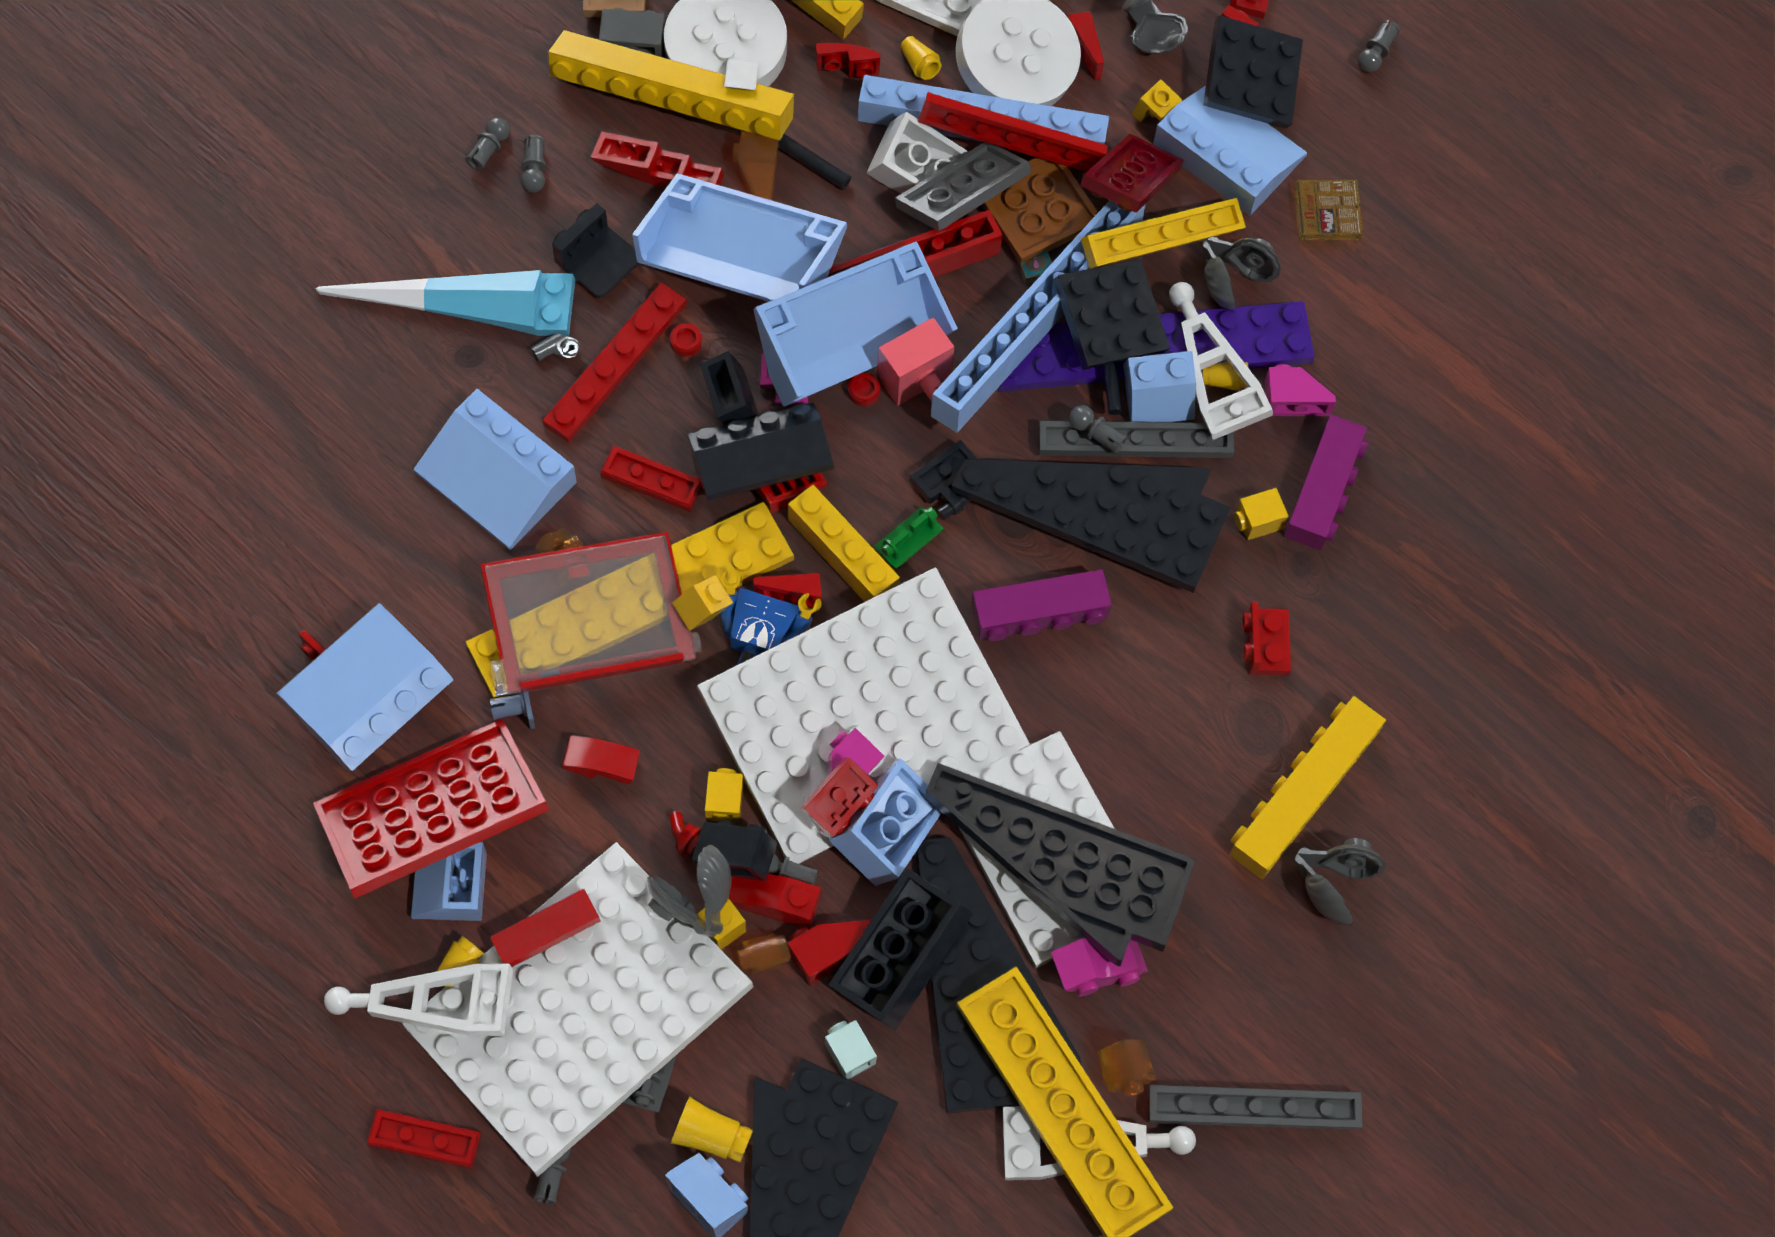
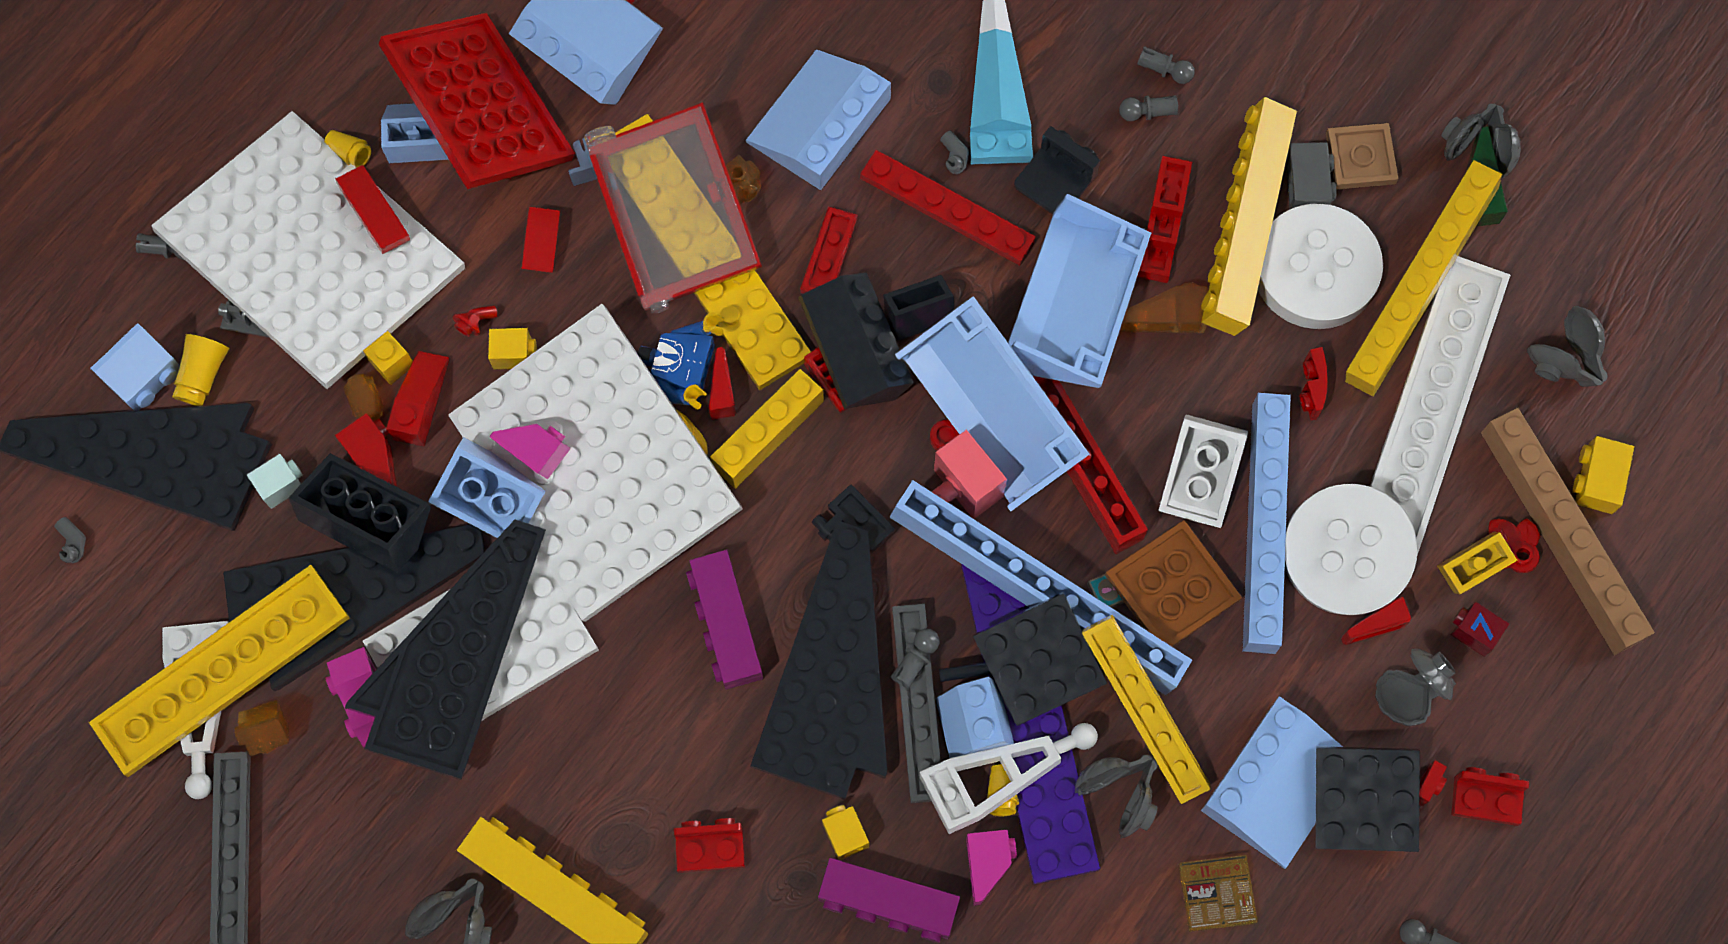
camera: 90 degrees right, 5 degrees up
(424, 1139) = (195, 144): red tile -> none
(486, 1009) = (304, 168): white plate -> none
(686, 339) = (979, 267): red tile -> none
(702, 602) = (690, 302): yellow brick -> none
(715, 887) = (397, 321): dark grey animal -> none
(741, 74) = (1267, 275): white sticker -> none
(745, 848) = (453, 359): black brick -> none
(793, 870) = (449, 394): dark grey pin -> none
(814, 162) = (1194, 364): black piece -> none
(839, 798) = (490, 434): red bracket -> none
(909, 537) = (789, 491): green hinge -> none
(921, 59) = (1330, 456): yellow cone -> none
(962, 185) = (1174, 503): dark grey plate -> none
(1011, 132) = (1240, 555): red plate -> none
(1131, 173) = (1214, 672): dark red plate -> none
(1156, 102) = (1312, 699): yellow bracket -> none

